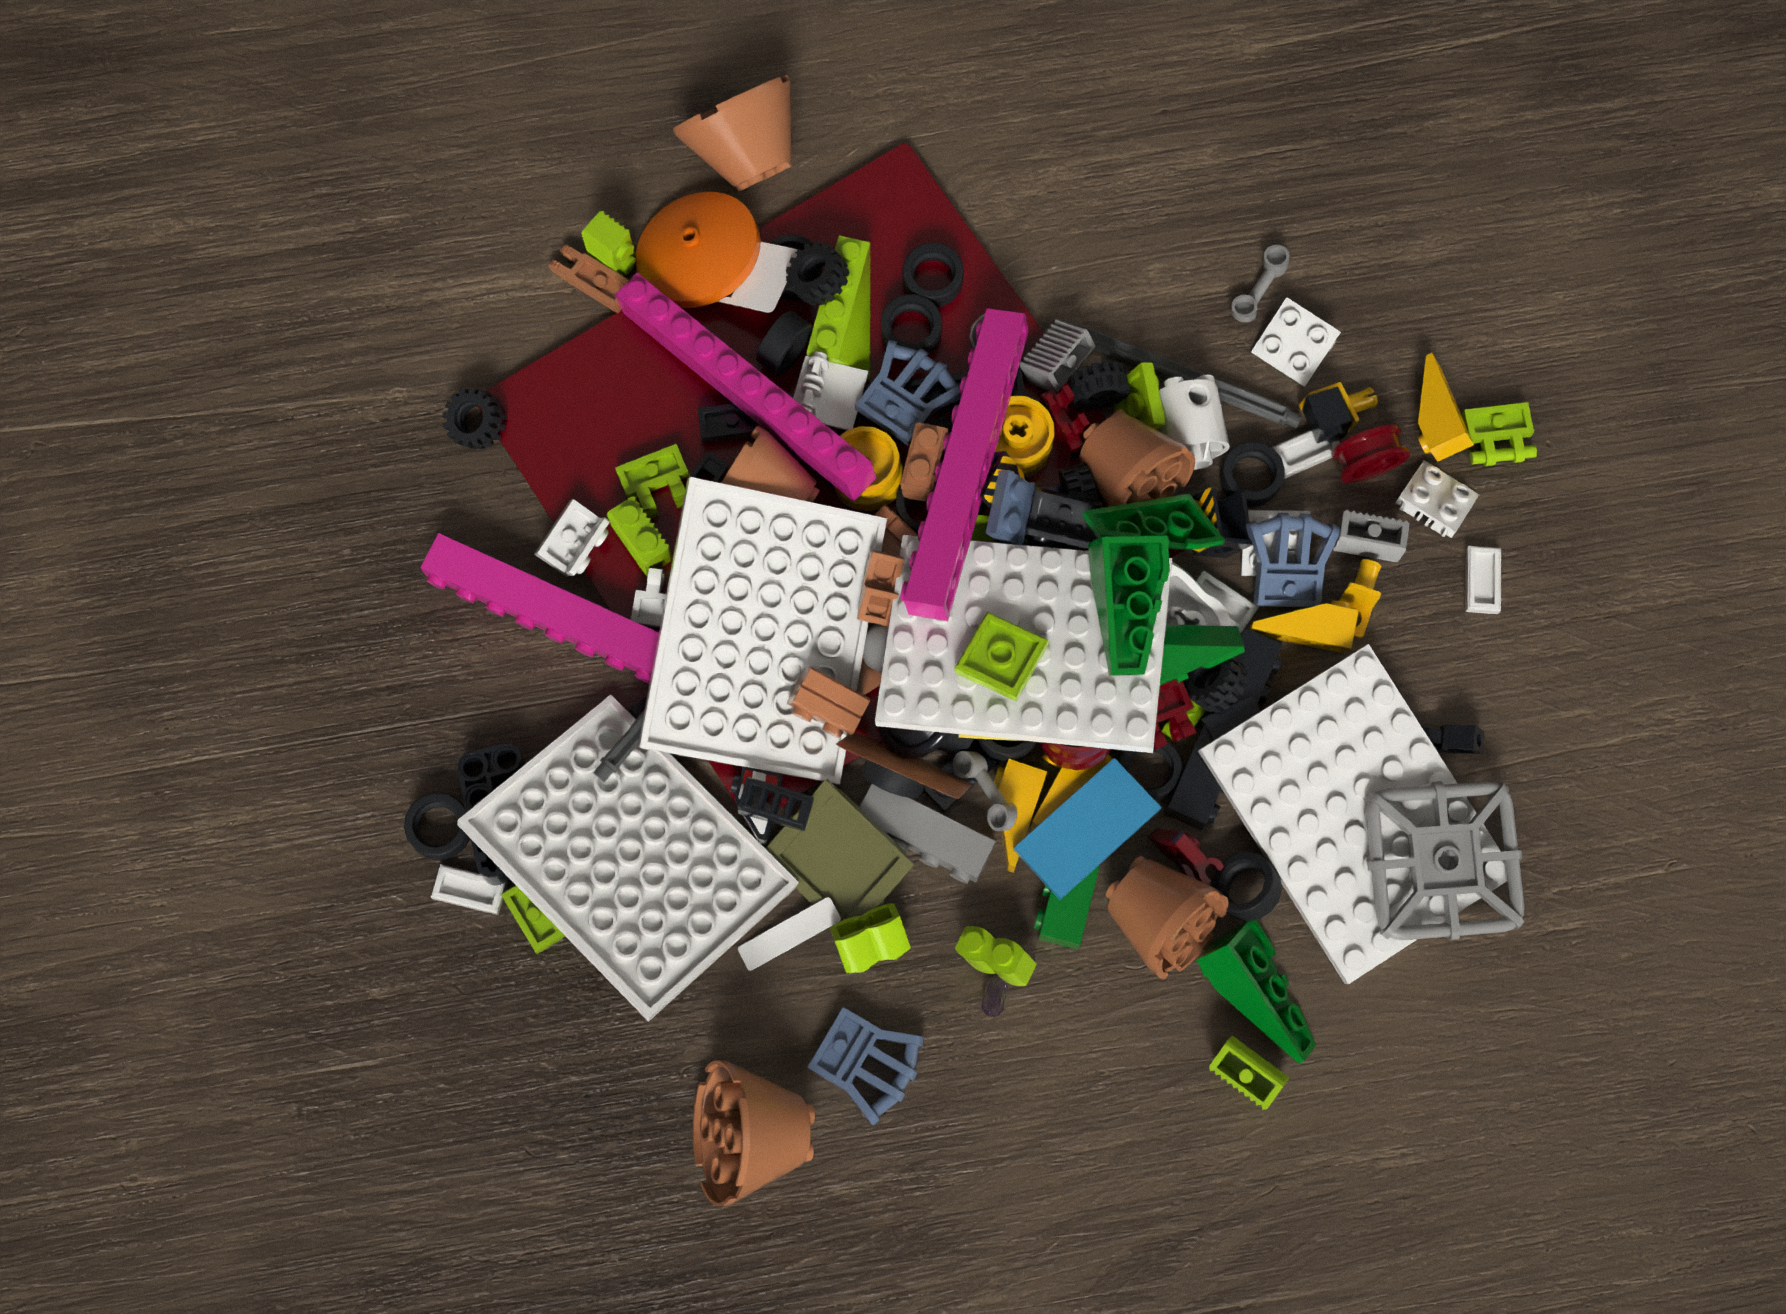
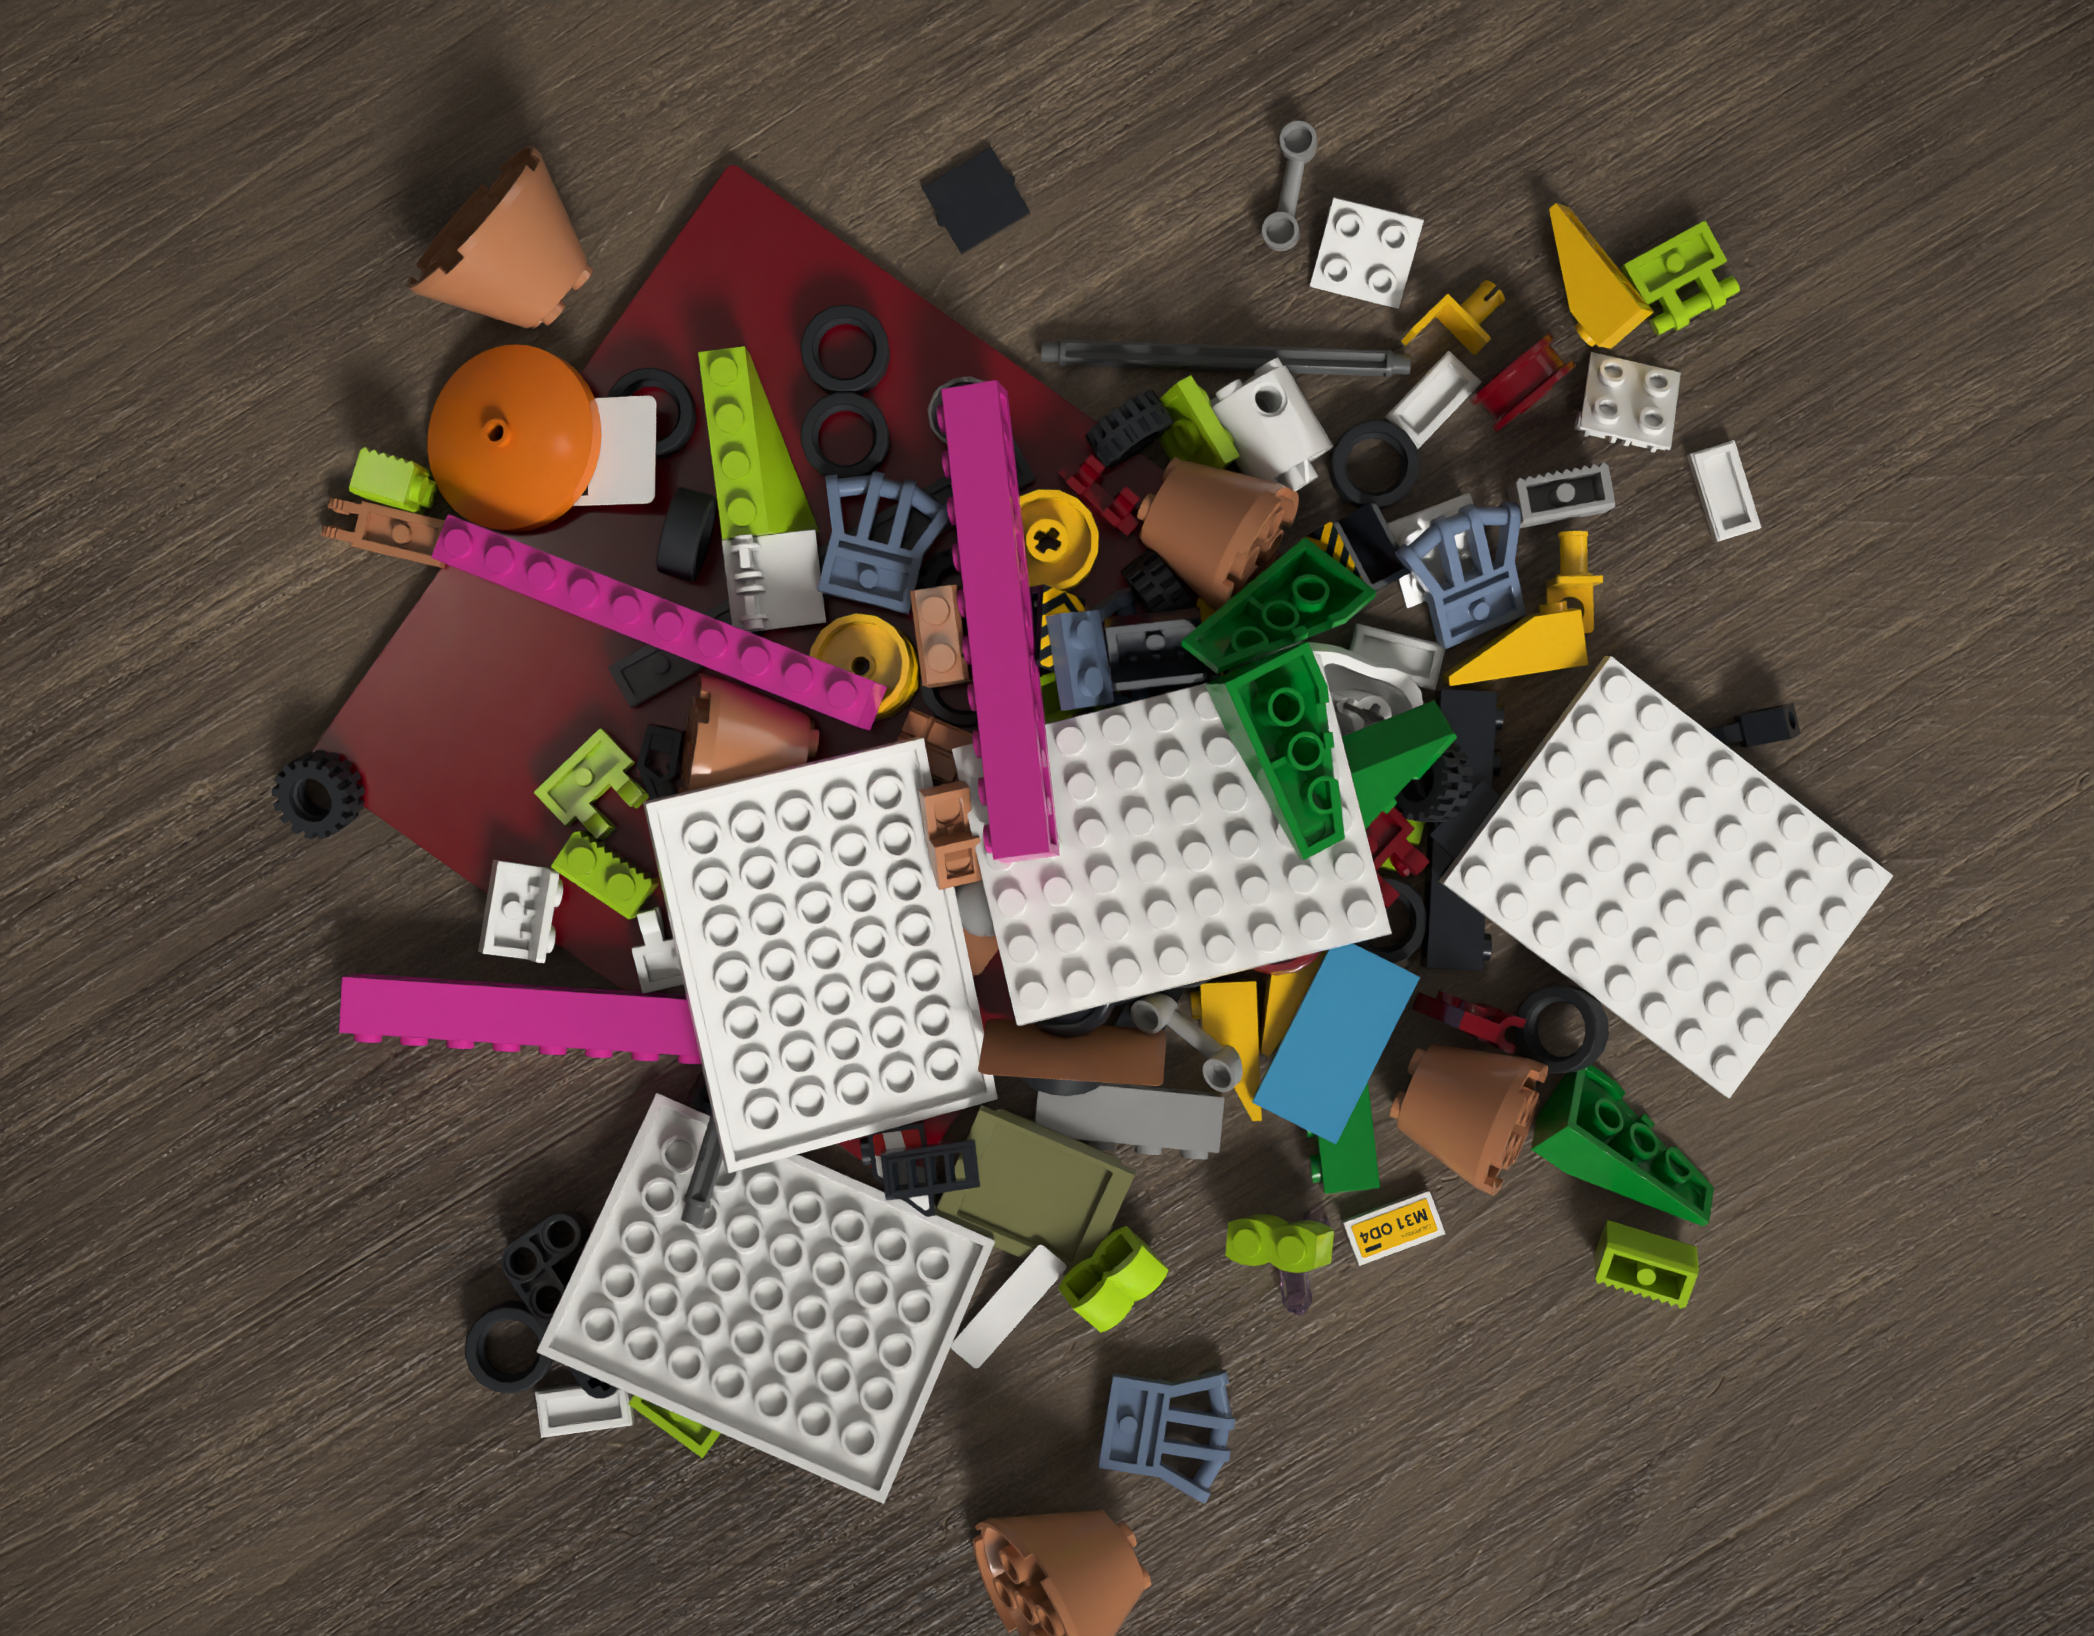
camera: 20 degrees left, 15 degrees up
(827, 283) = (670, 419): black tyre -> none
(828, 702) = (943, 1013): nougat brick -> none
(1001, 656) = (1149, 881): lime tile -> none
(1053, 222) = (976, 200): none -> black piece
(1057, 355) = (1057, 405): light grey brick -> none
(1079, 984) = (1393, 1227): none -> tile
(1327, 415) = (1447, 349): black brick -> none
(1429, 876) = (1773, 894): light grey plate -> none

